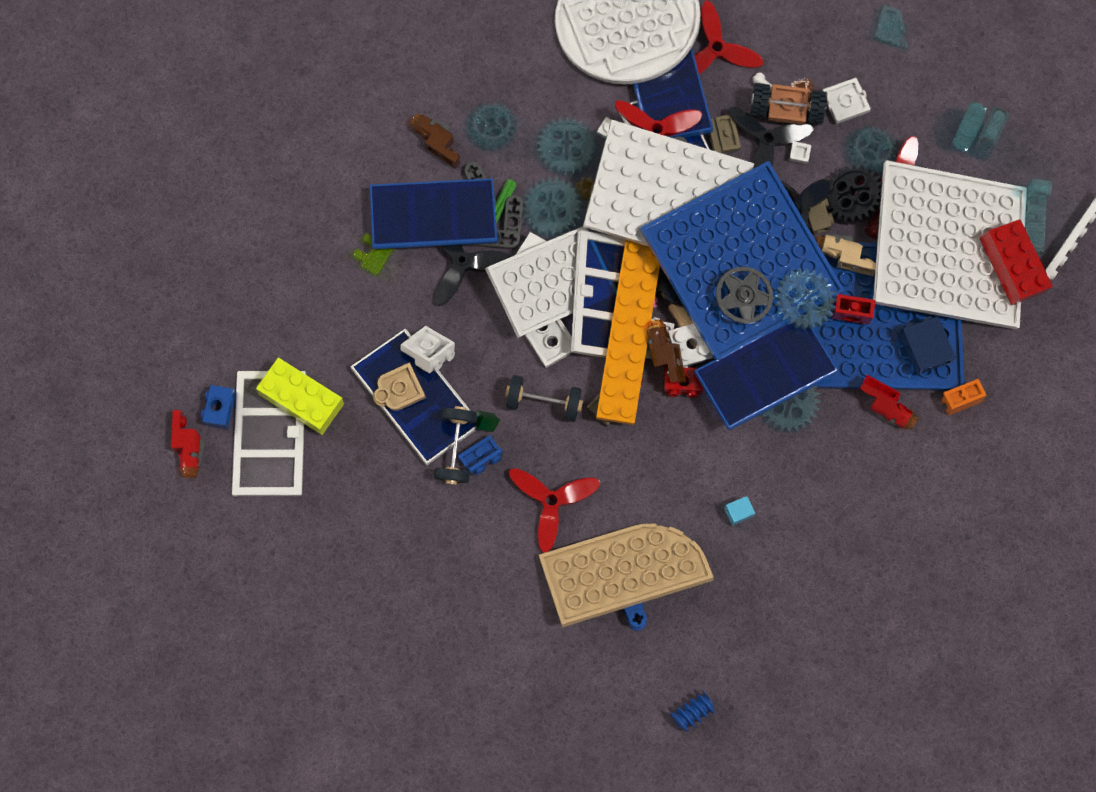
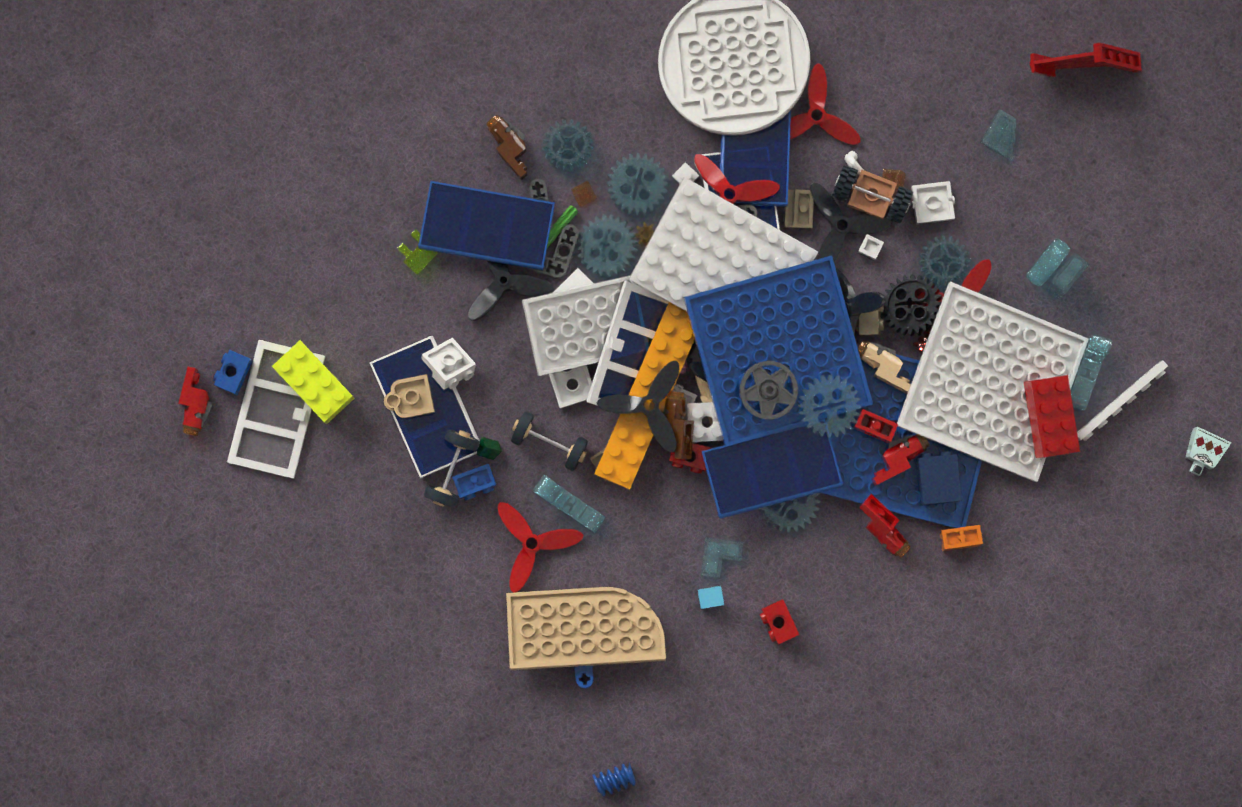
camera: 15 degrees right, 10 degrees up
(517, 166) = (583, 194): none -> clear orange slope
(577, 454) = (569, 504): none -> clear light blue beam
(643, 349) = (656, 419): none -> black piece
(731, 468) = (715, 551): none -> clear light blue plate
(823, 523) = (788, 629): none -> red brick
(883, 333) = (898, 454): none -> red plate

